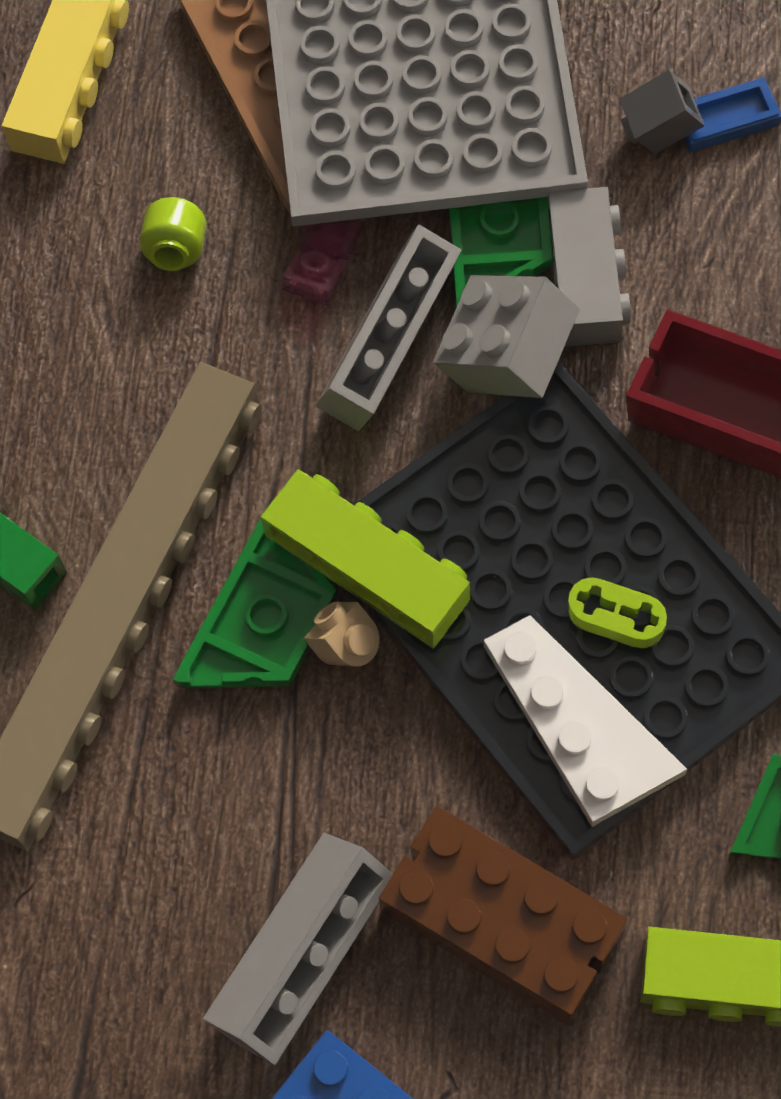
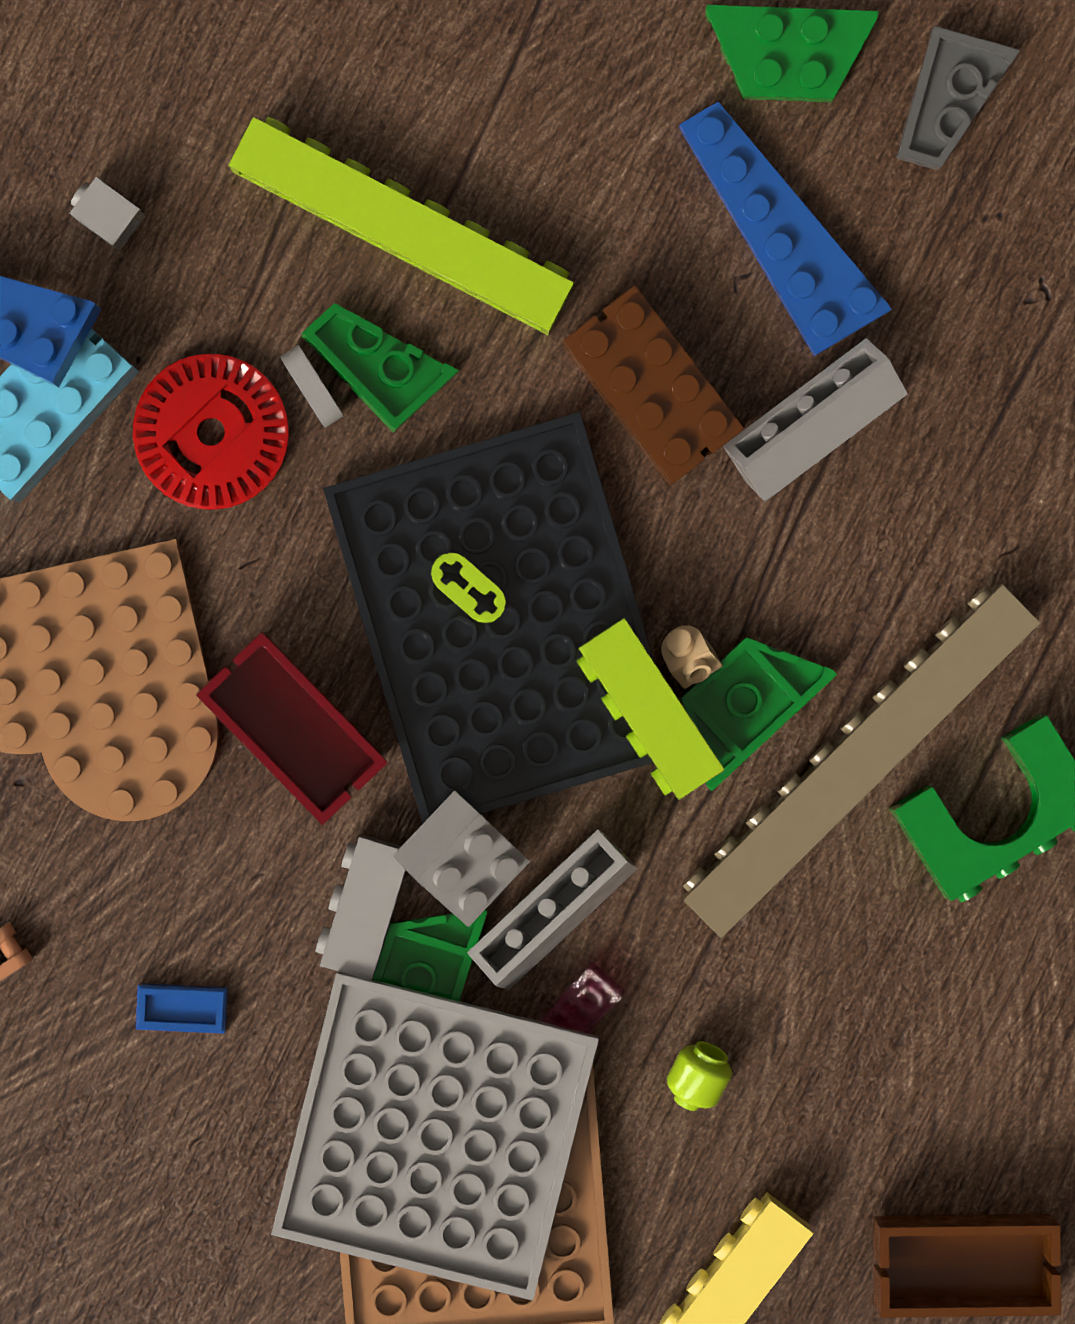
camera: 165 degrees left, 20 degrees up
(586, 732) = (533, 504): white wing -> none
(660, 112) = (242, 1023): dark grey brick -> none

